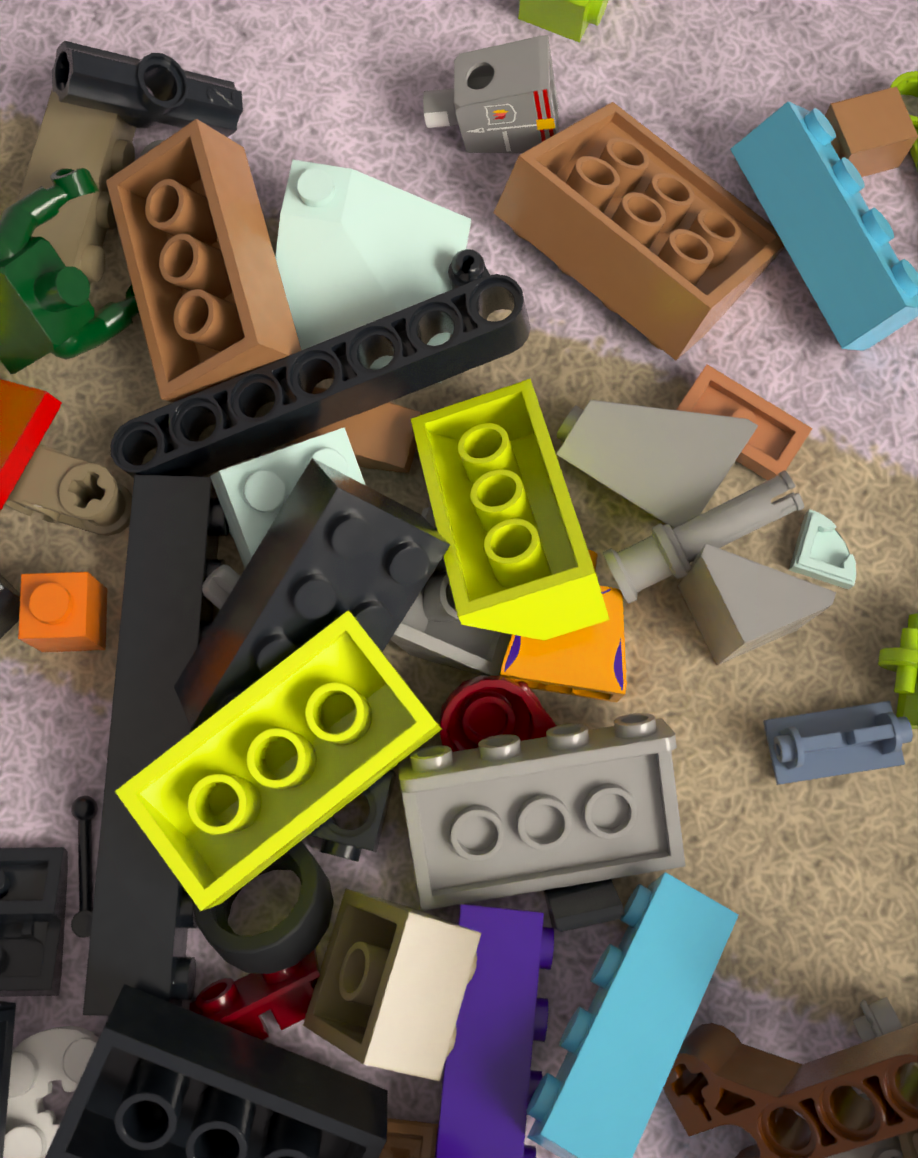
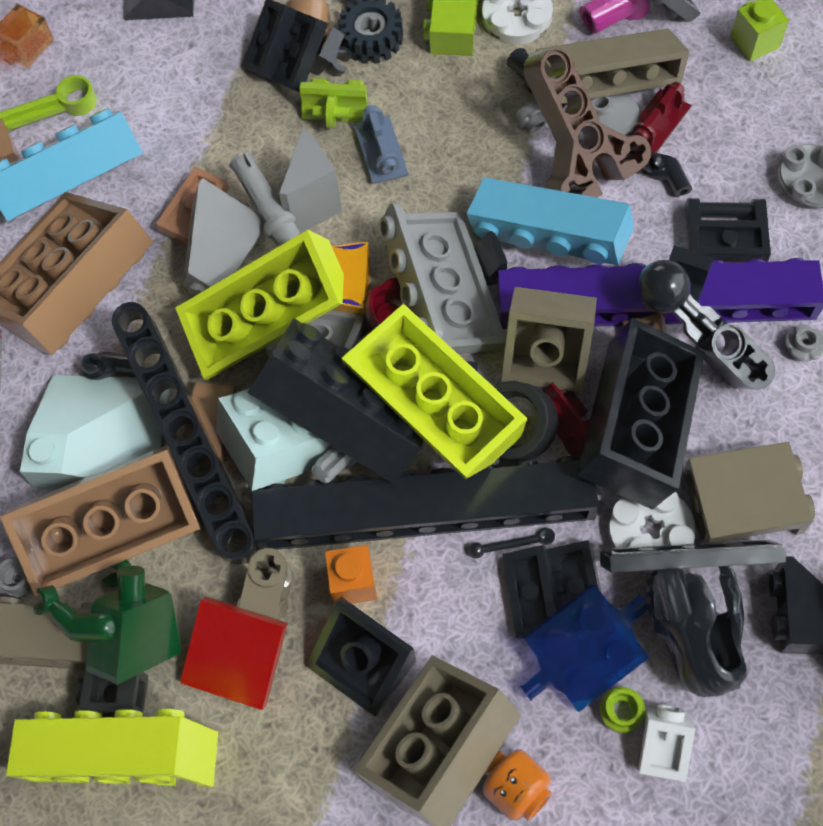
camera: 90 degrees left, 10 degrees down
(823, 552) = (273, 160): light aqua tile -> none

